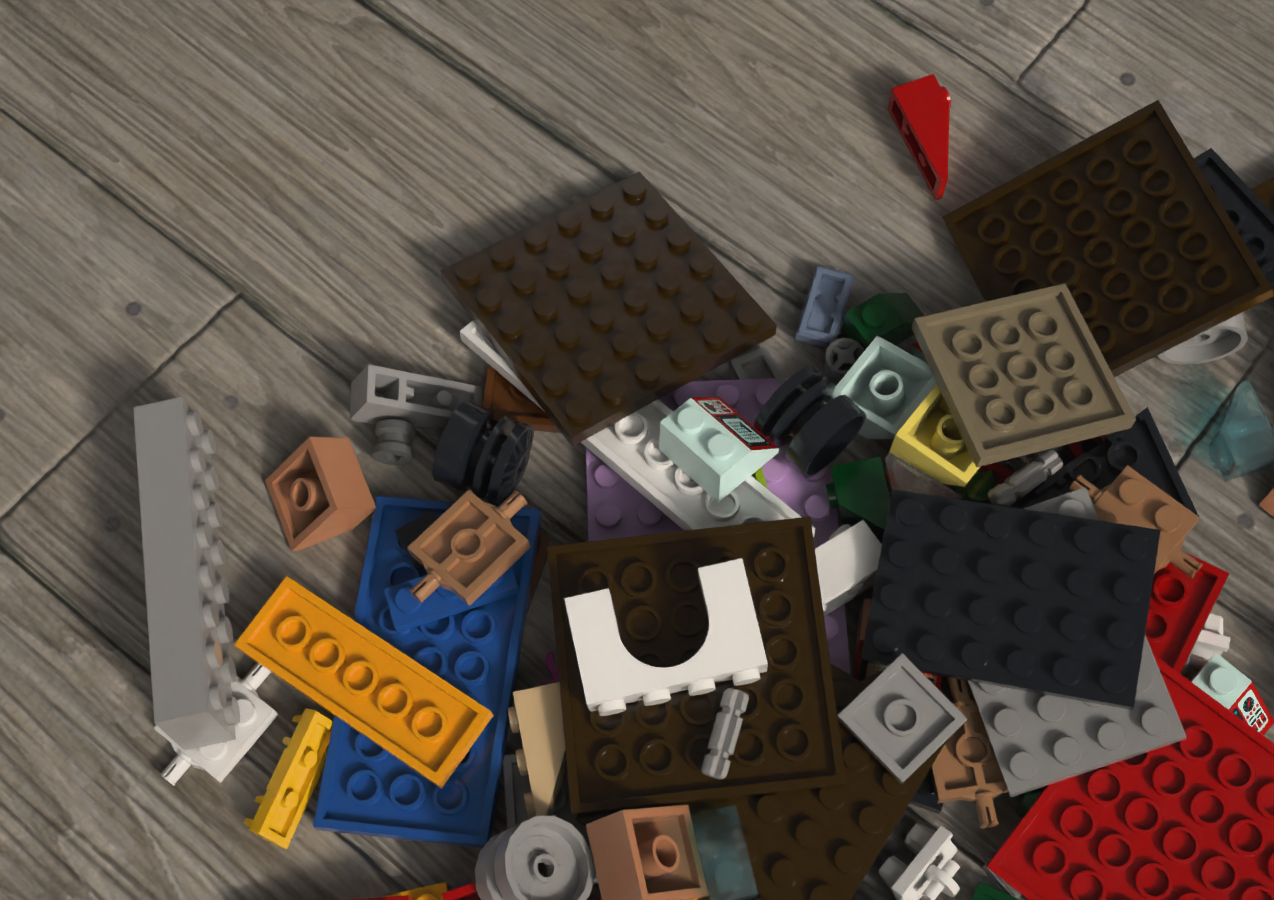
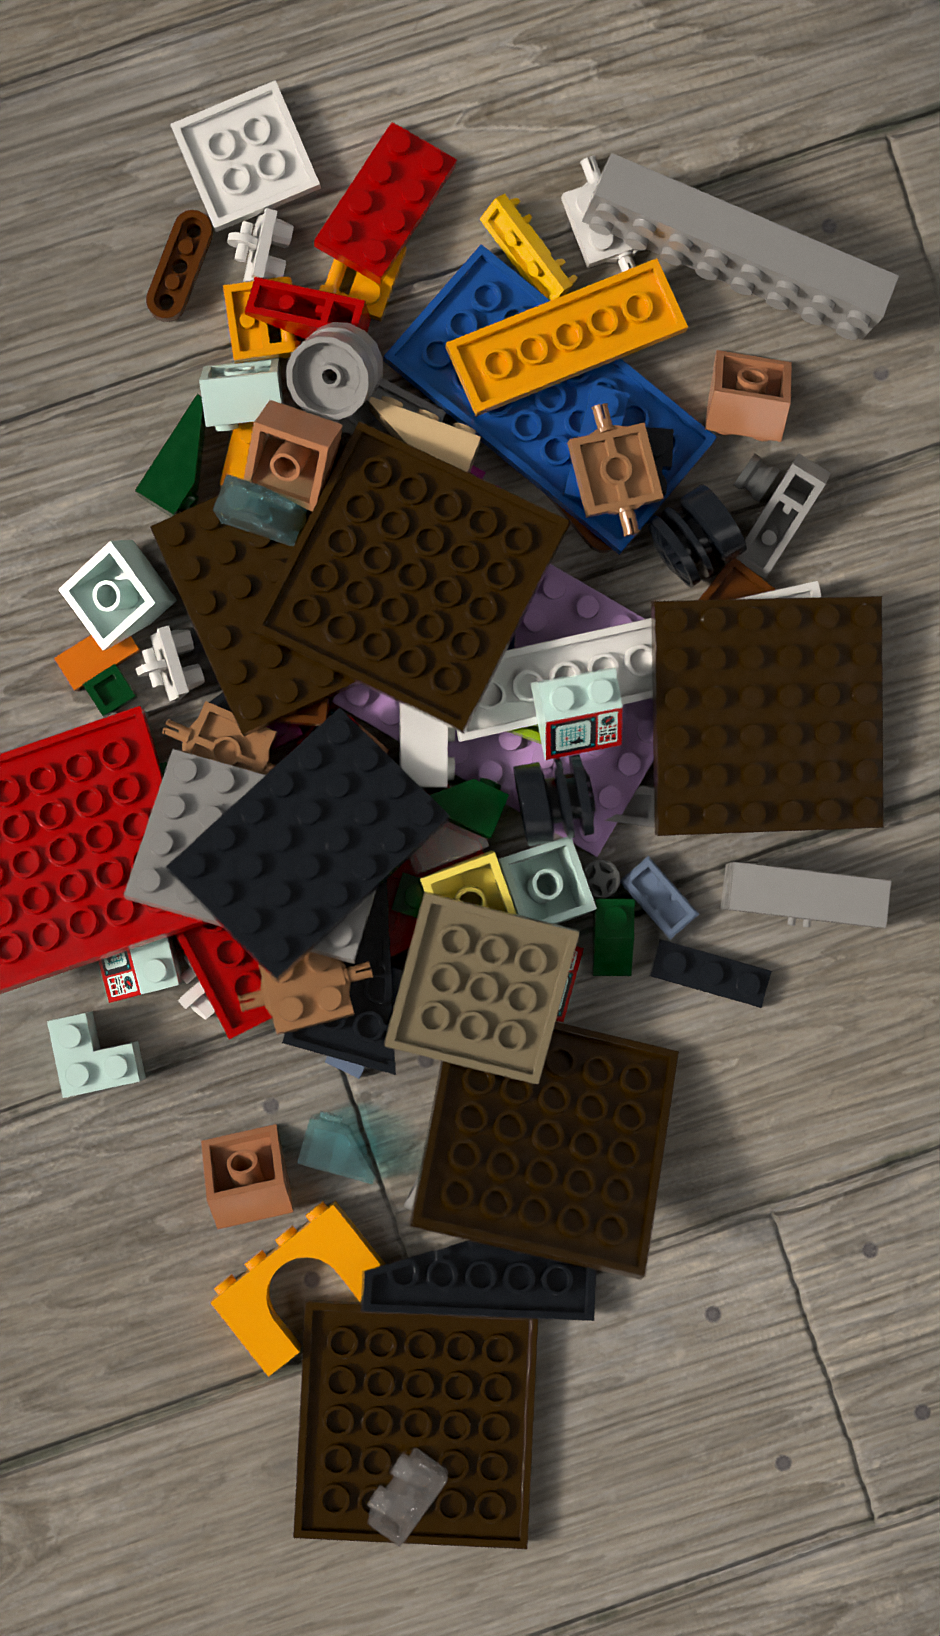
camera: 115 degrees right, 20 degrees up
(616, 677) = (431, 506): white arch -> none
(725, 733) = (340, 561): light grey axle -> none
(743, 187) = (805, 895): none -> light grey brick
(858, 234) = (710, 973): none -> black plate
(901, 718) = (272, 701): light grey plate -> none
(923, 119) = (778, 1100): red slope -> none
(1025, 479) = (398, 932): light grey axle -> none

